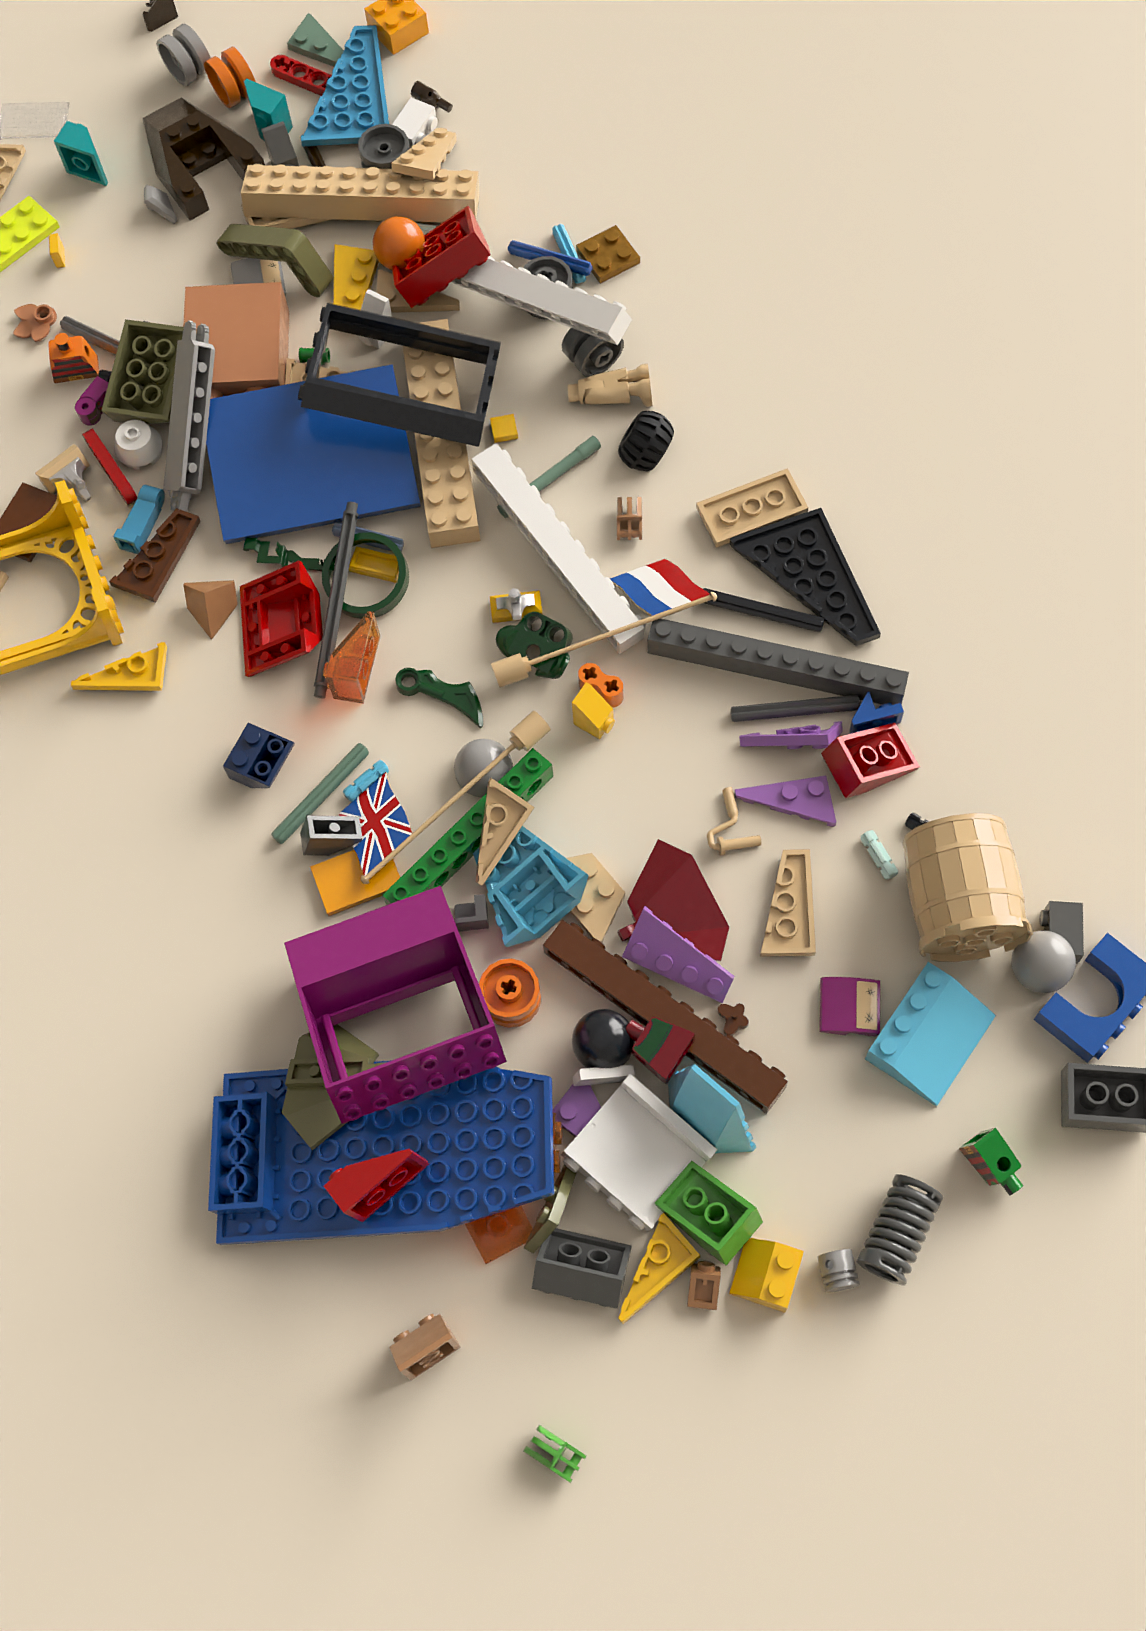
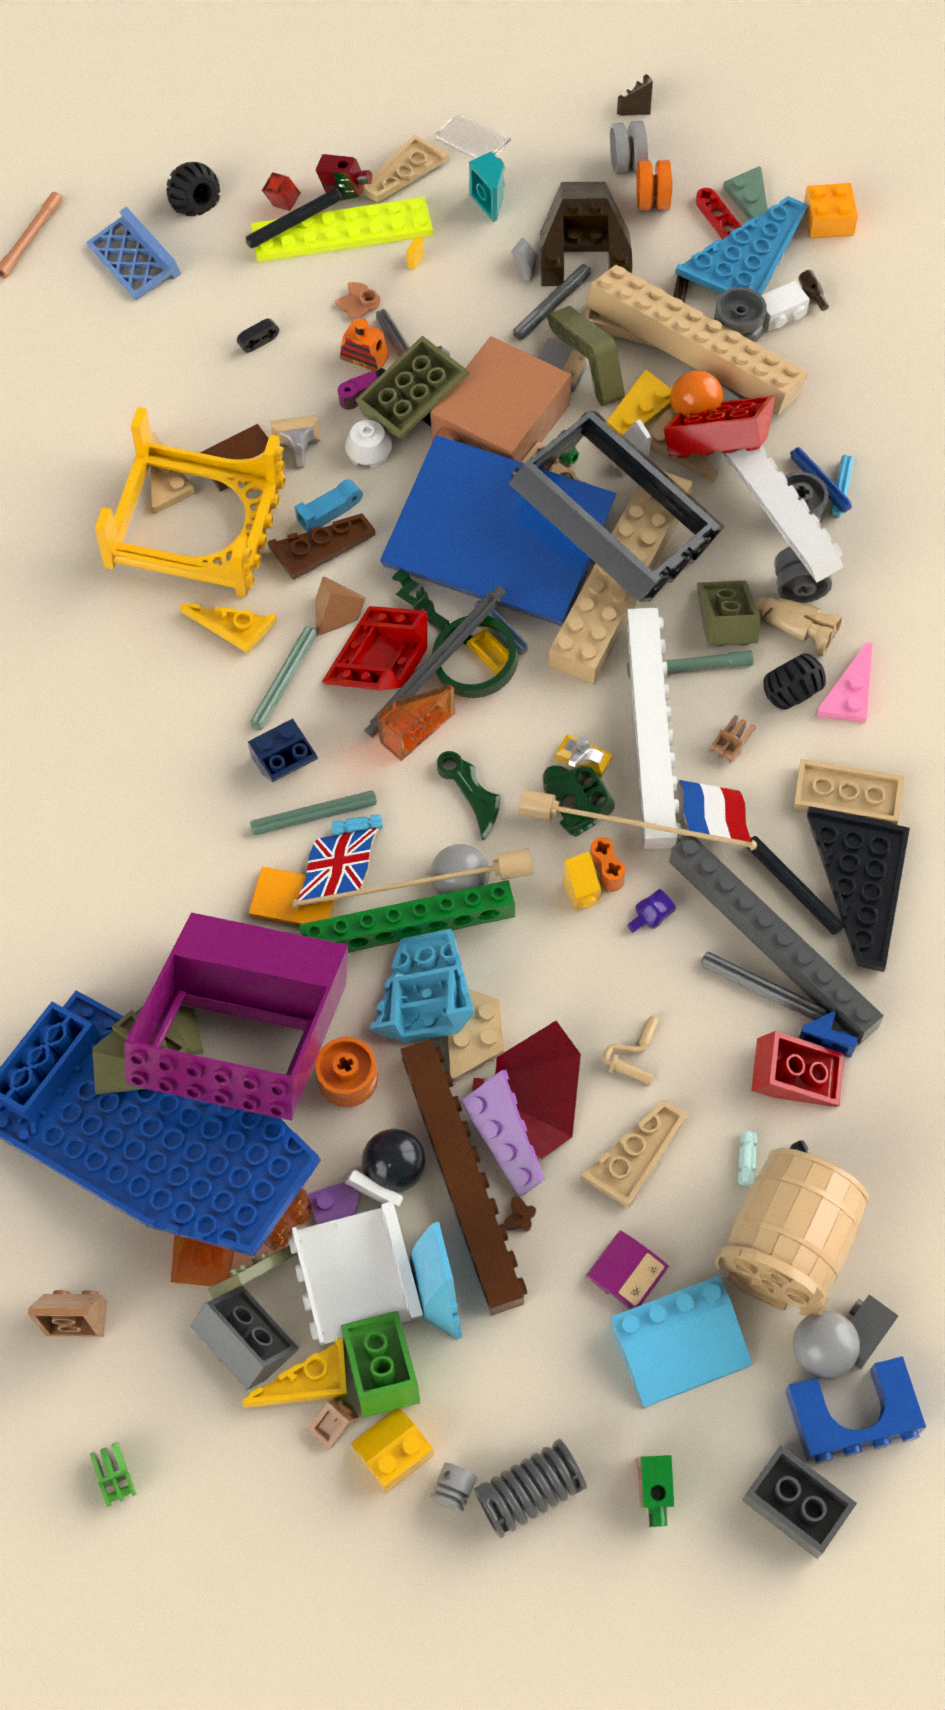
camera: 30 degrees right, 5 degrees down
(110, 466) = (334, 449): red beam -> none
(189, 415) = (418, 442): light grey hinge -> none
(209, 693) = (283, 678): none -> sand green axle
(210, 229) = (551, 302): none -> dark grey axle
(267, 106) = (665, 231): teal slope -> none
(279, 145) = (654, 263): dark grey slope -> none
(329, 834) = (294, 849): dark grey slope -> none
(370, 1183) = (116, 1149): red slope -> none
(426, 155) = (770, 336): tan wing -> none
(472, 915) = (364, 989): dark grey panel -> none
(501, 822) = (438, 924): tan wing -> none
(504, 428) = (680, 601): yellow tile -> none
(552, 414) = (728, 613): none -> olive slope
(608, 253) = (876, 504): pearl gold plate -> none
(660, 1046) = (435, 1195): dark red torso -> none
(664, 701) = (652, 911): none -> dark purple piece
(697, 426) = (850, 694): none -> bright pink wing
(795, 737) = (745, 1011): medium lavender wing -> none
(799, 797) = (715, 1067): medium lavender wing -> none

